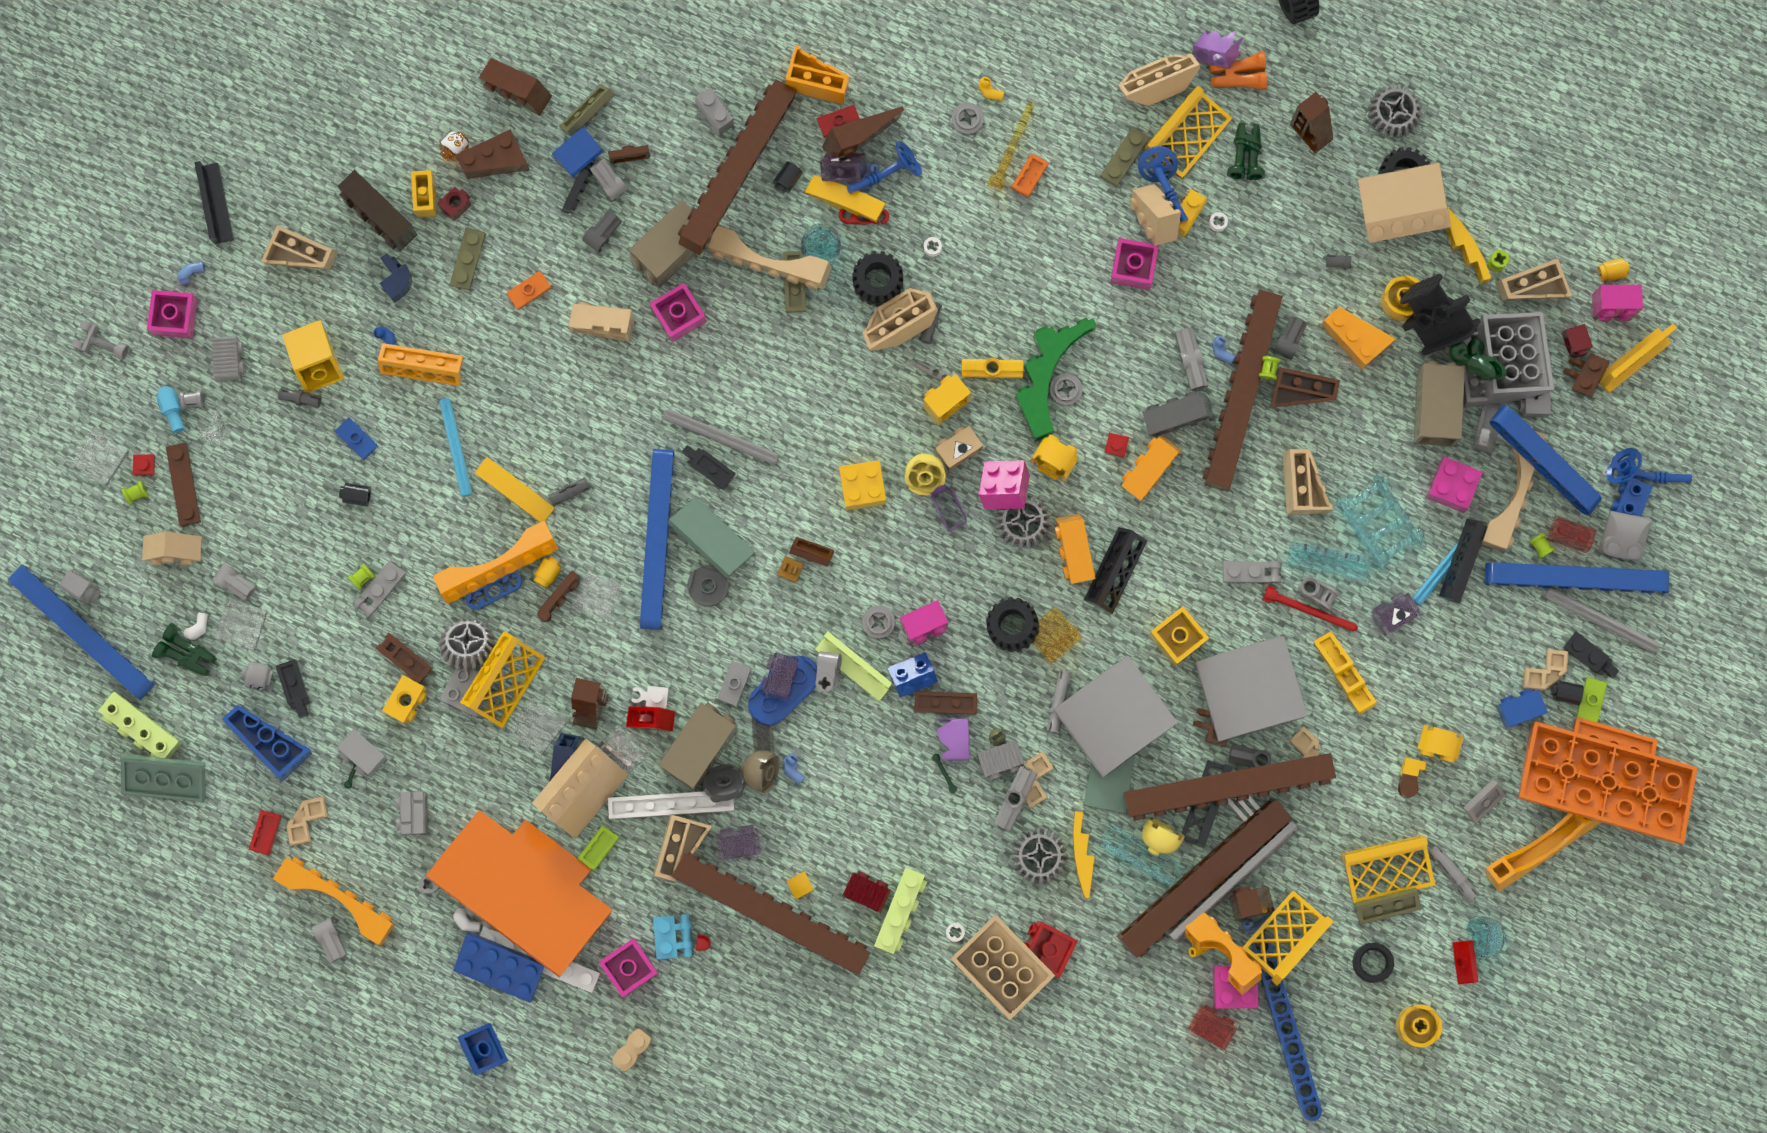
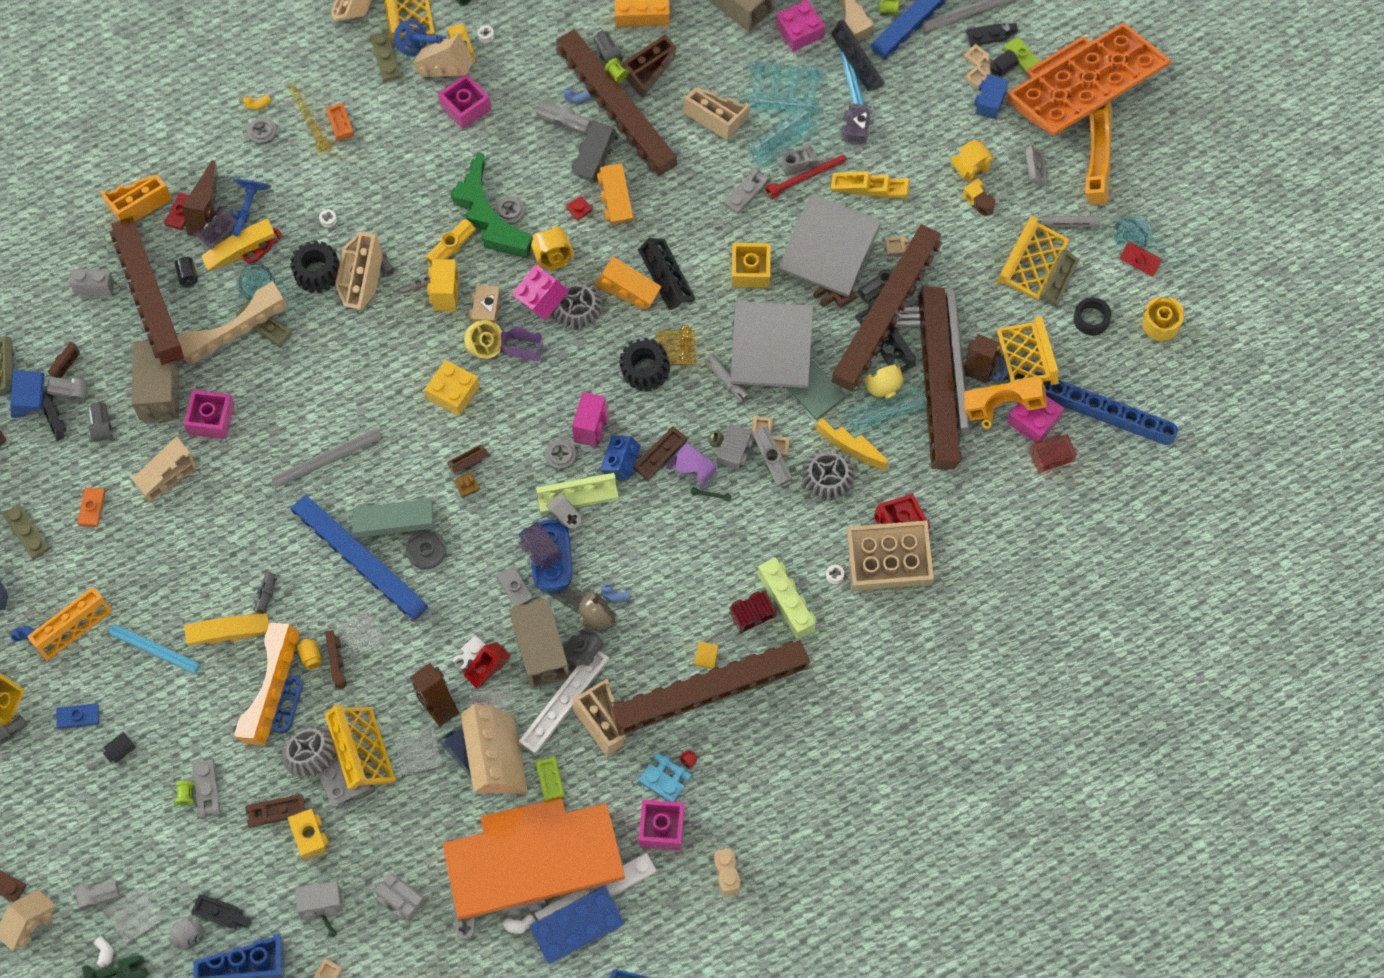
camera: 50 degrees left, 15 degrees down
(709, 467) = (339, 481): black hinge -> none
(738, 843) = (636, 673): clear purple brick -> none

